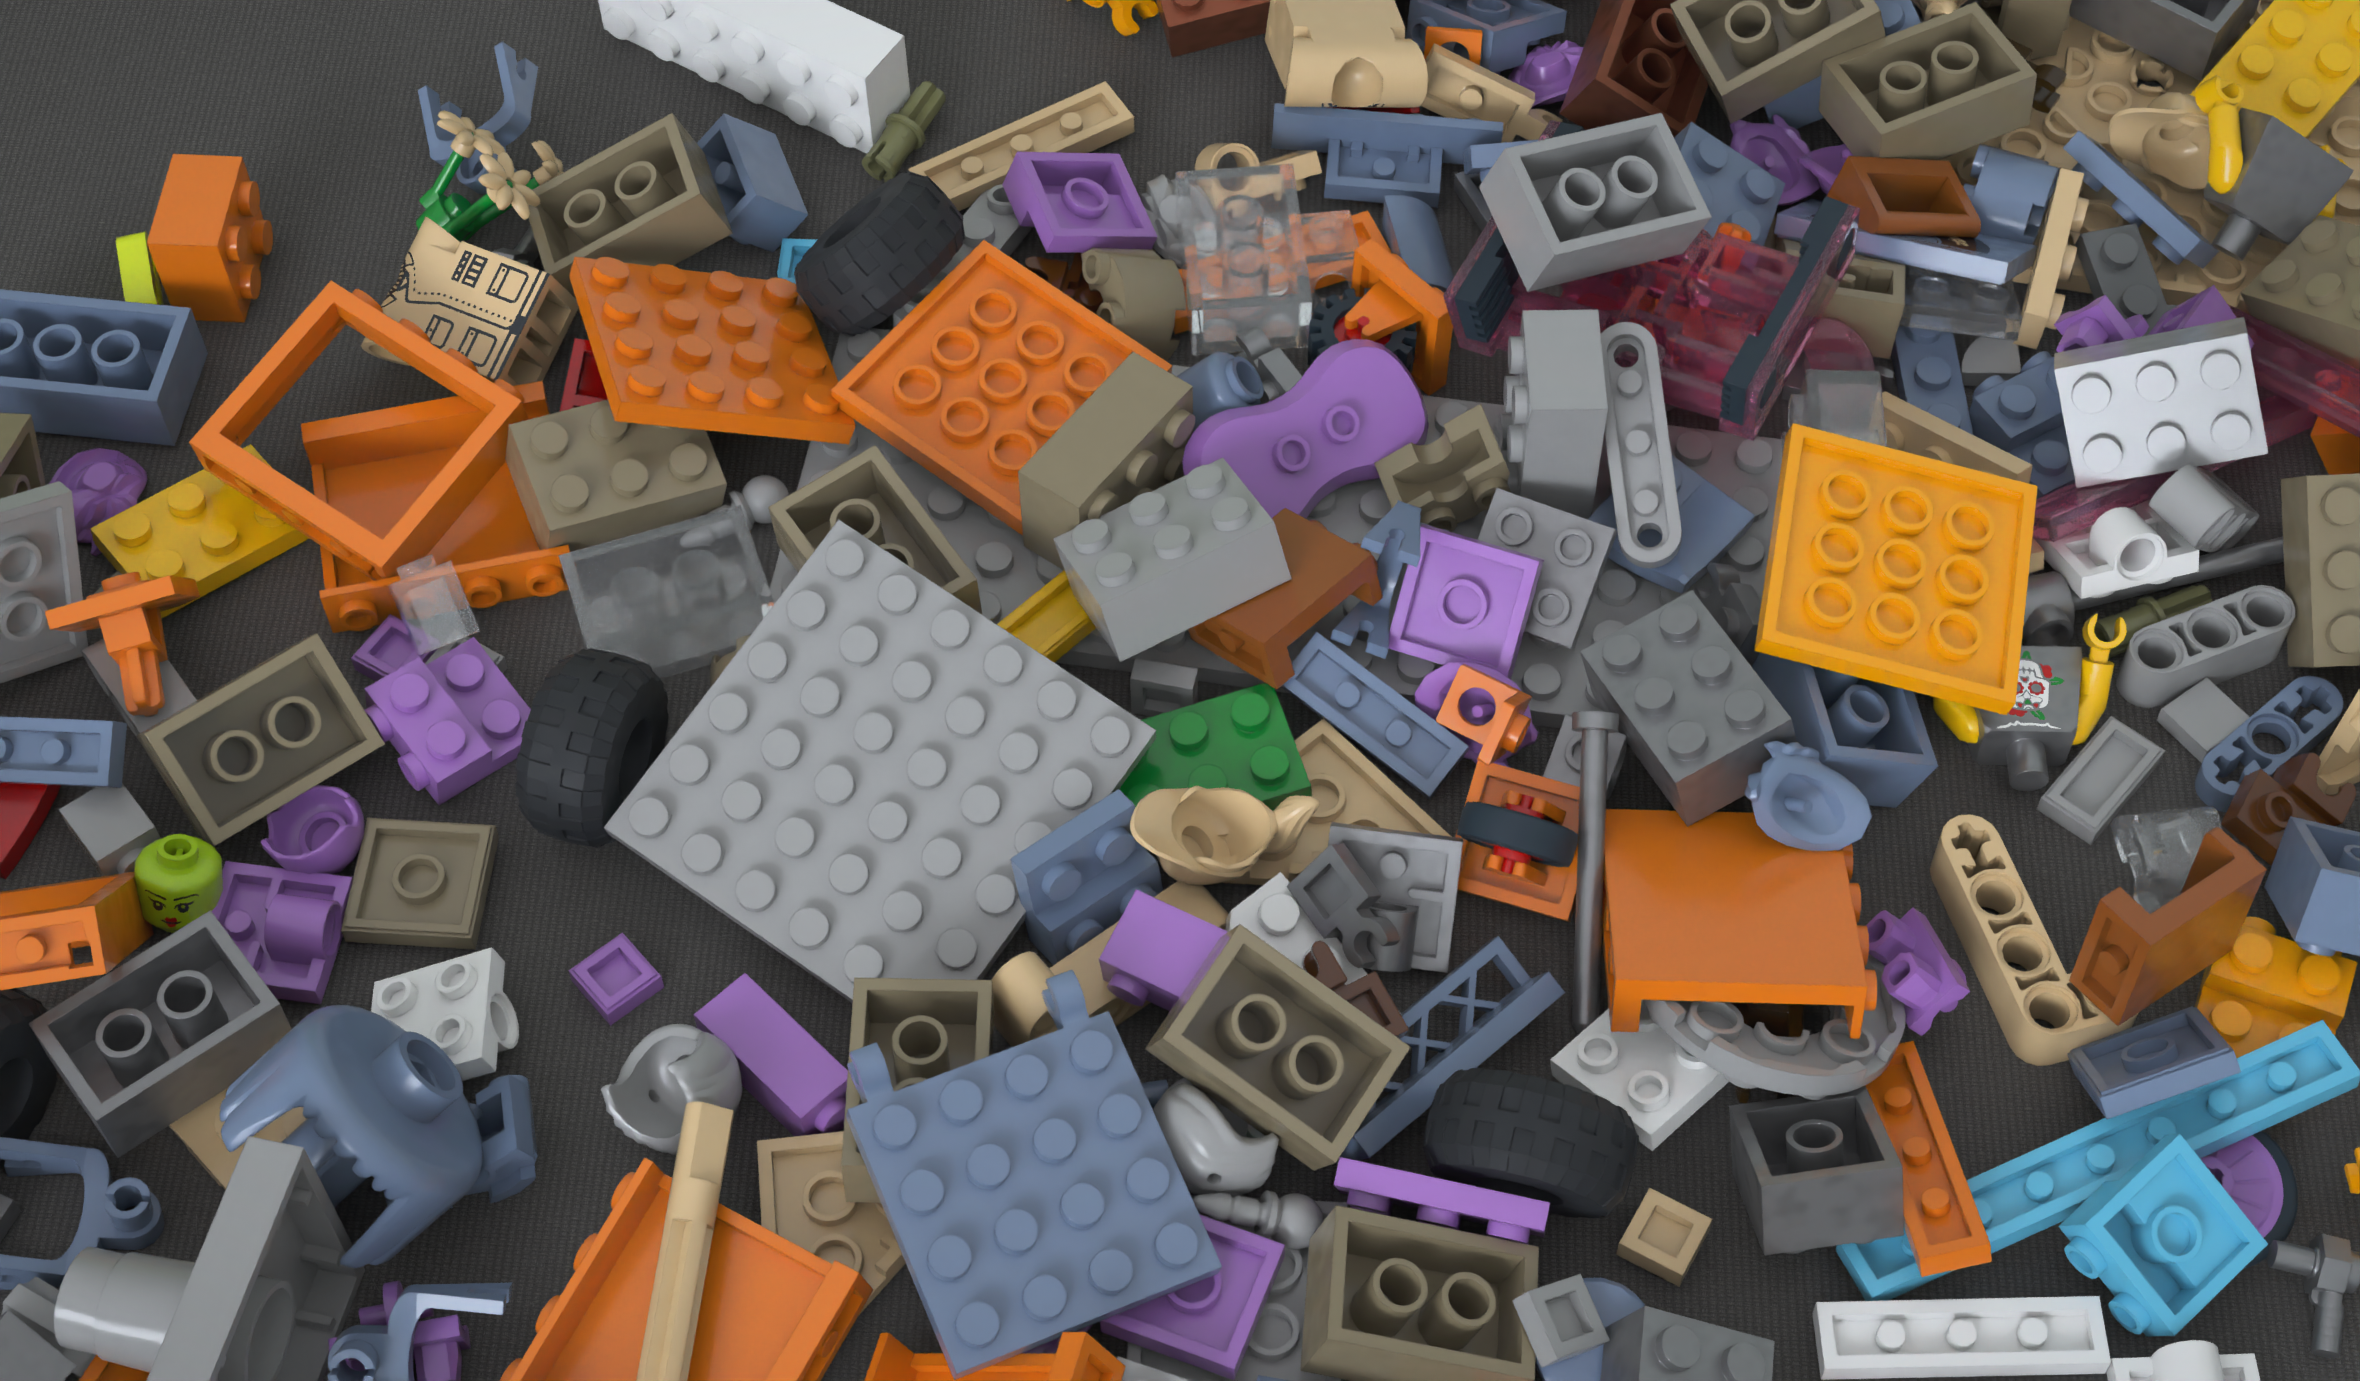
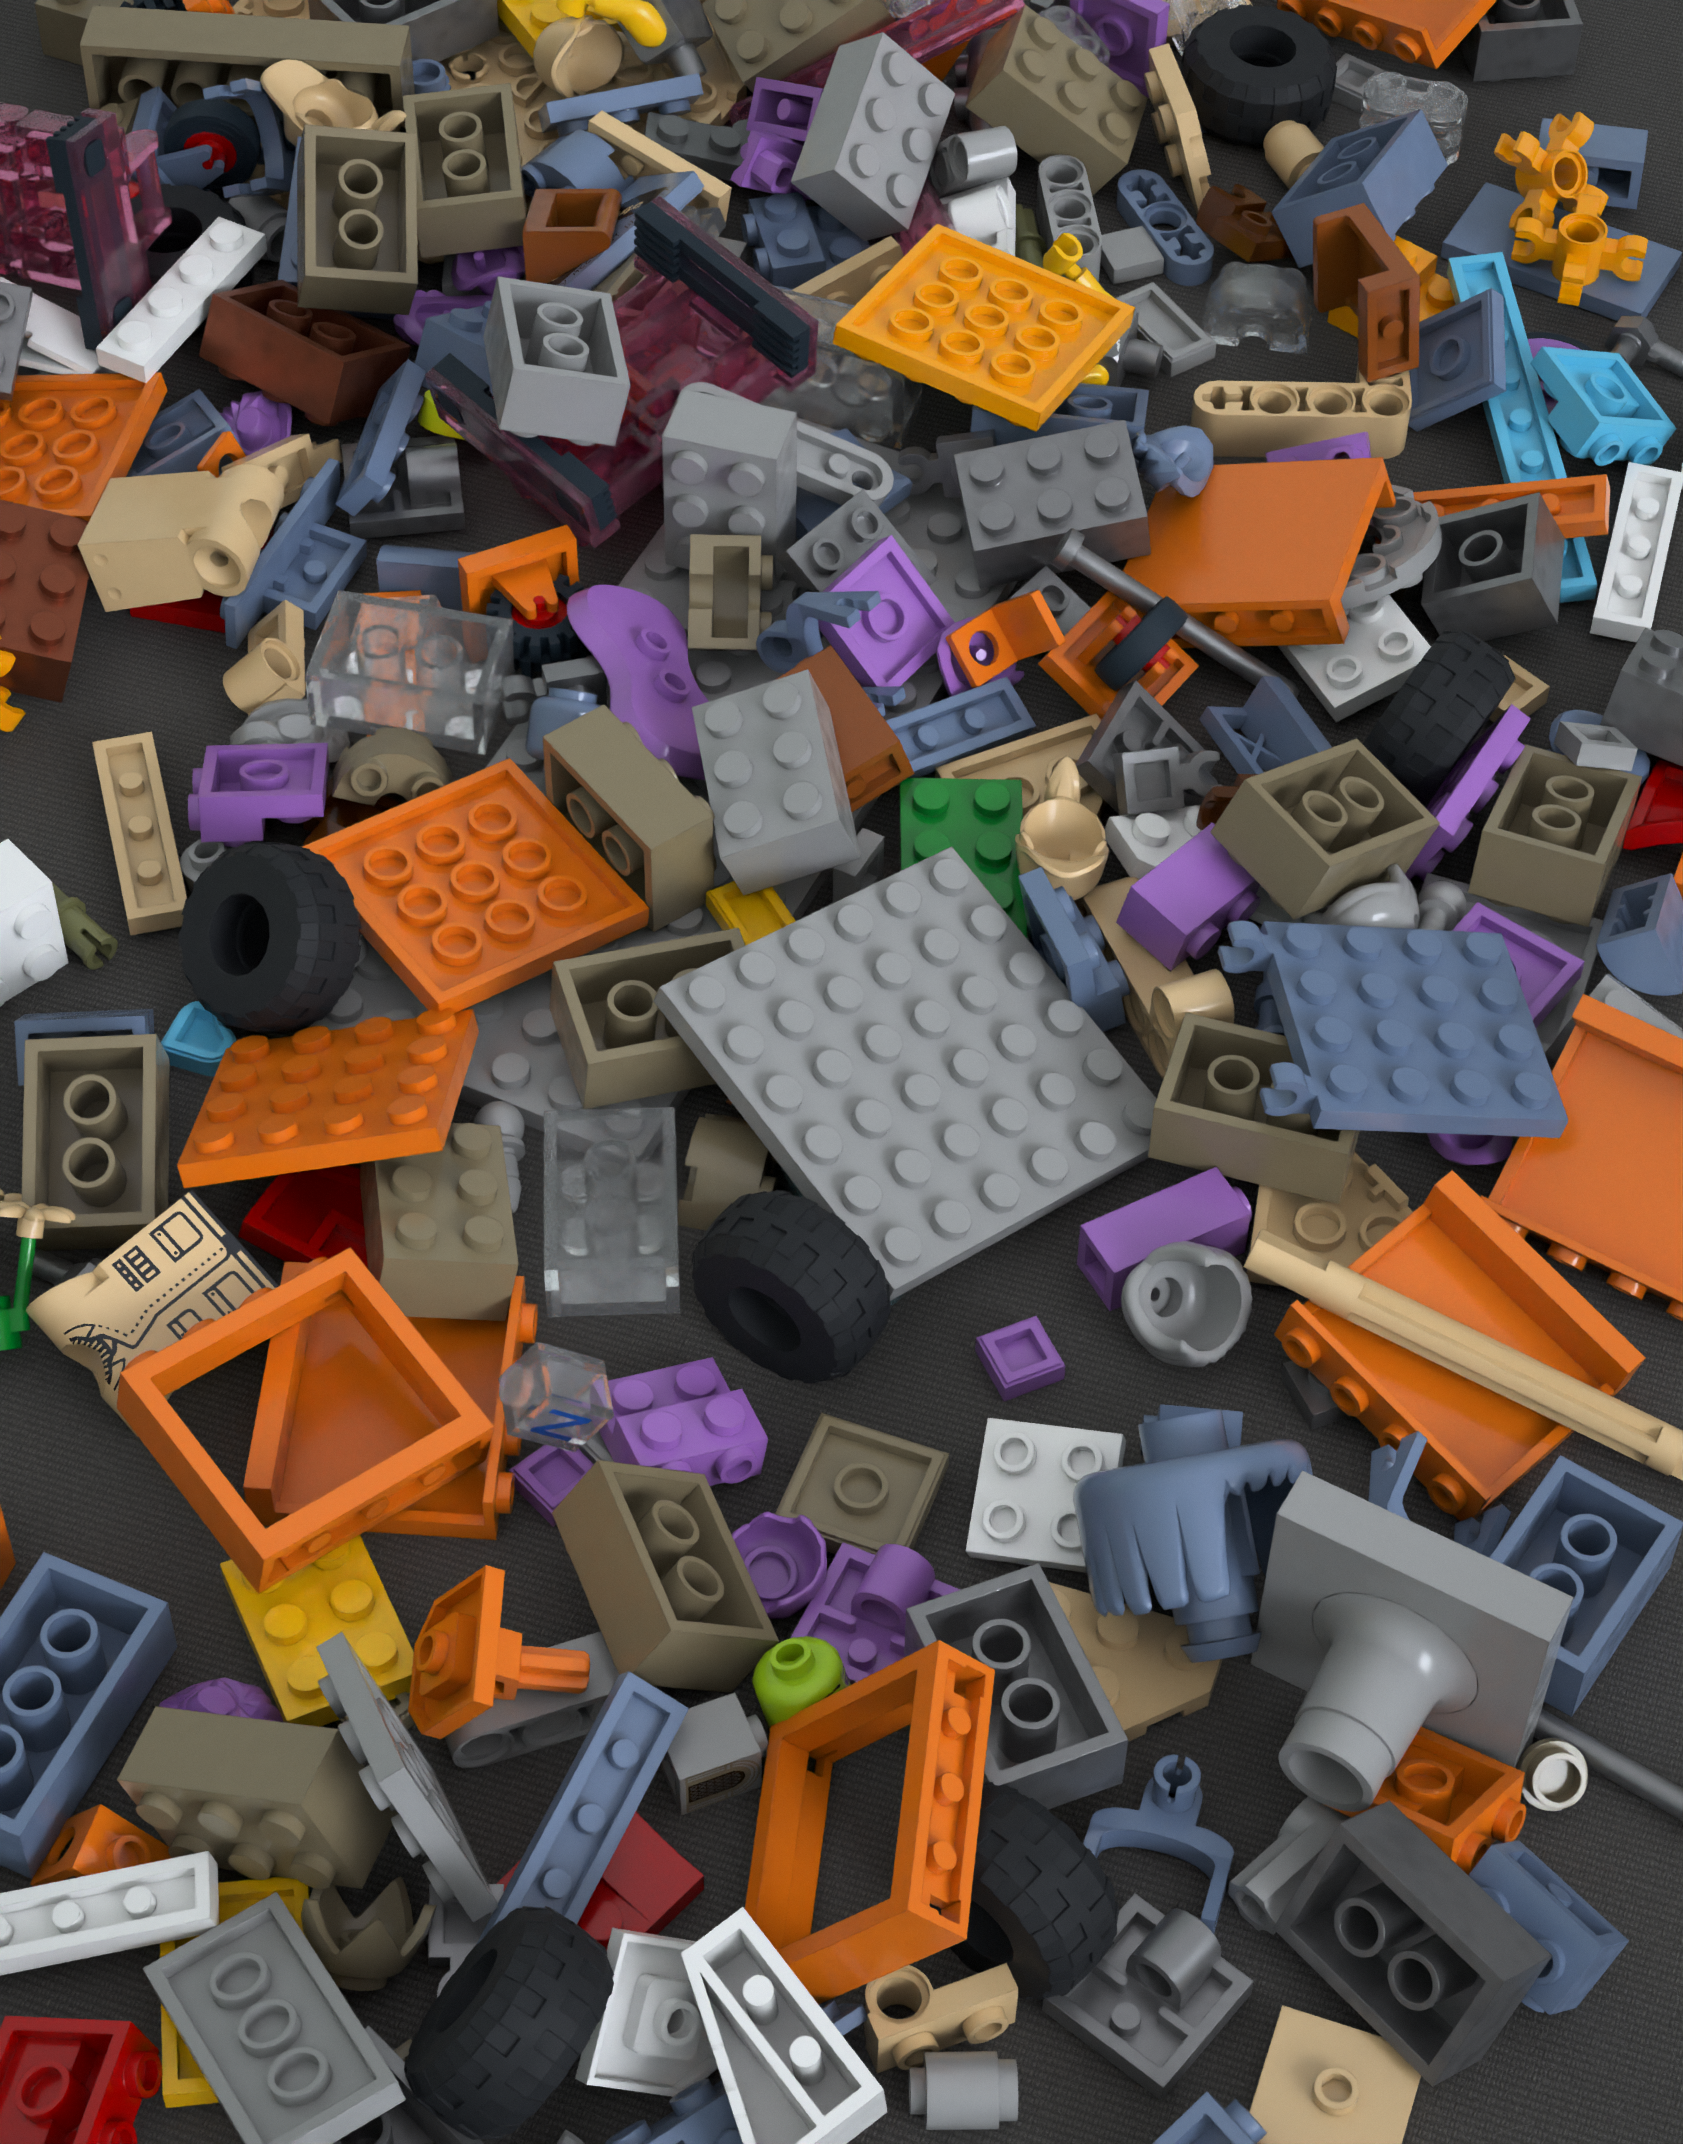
camera: 75 degrees left, 5 degrees down
(2086, 42) = (429, 76): none -> sand blue plate

